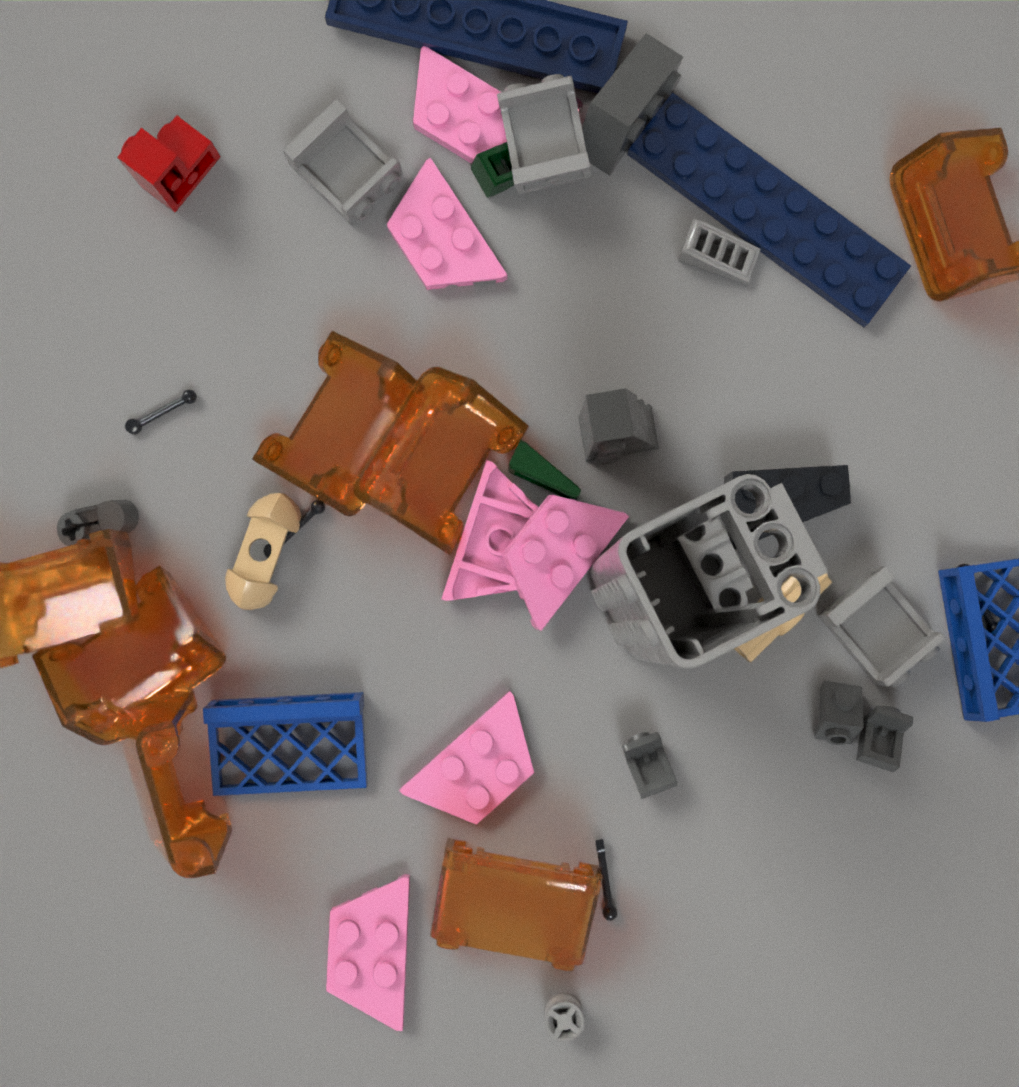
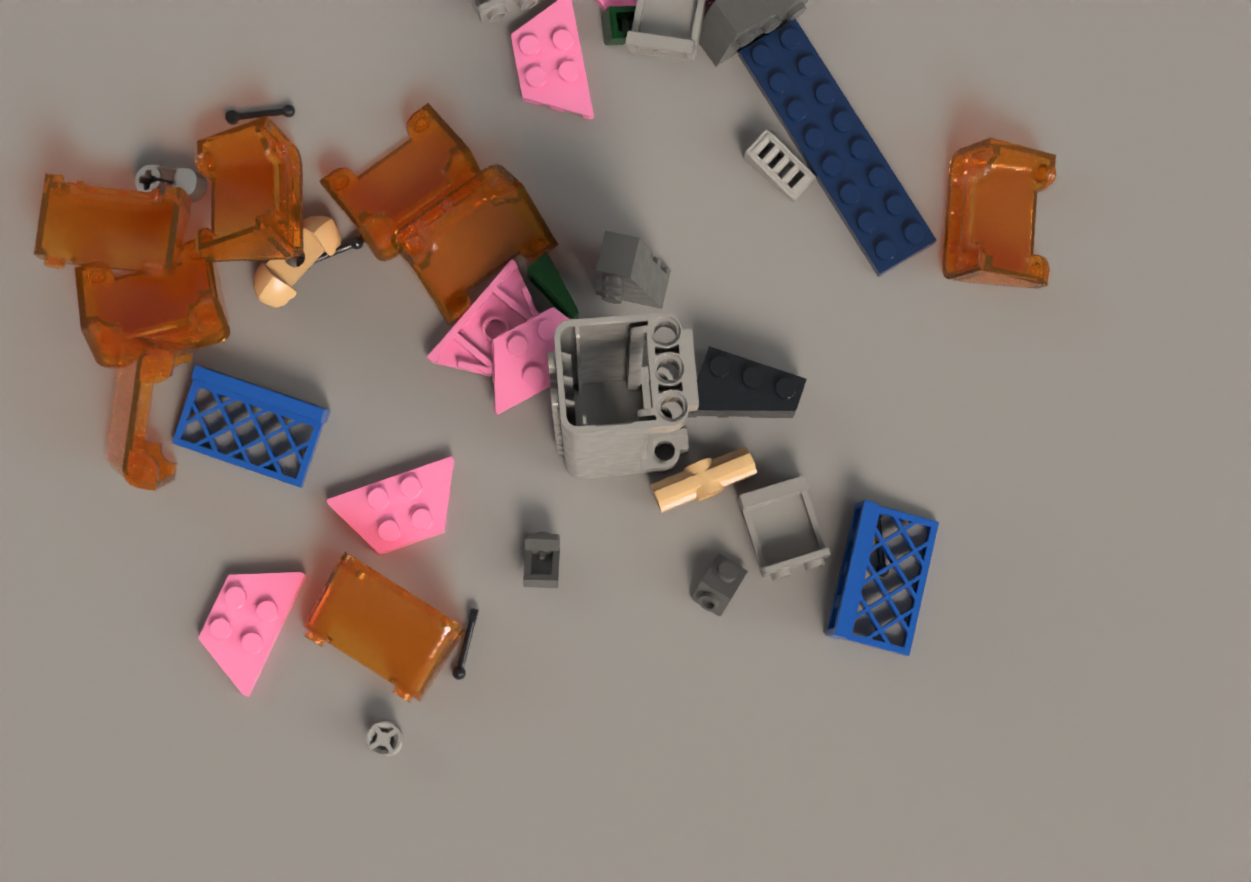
camera: 20 degrees right, 5 degrees down
(189, 503) = (253, 195): none -> clear orange windscreen
(883, 737) = (747, 617): dark grey bracket -> none

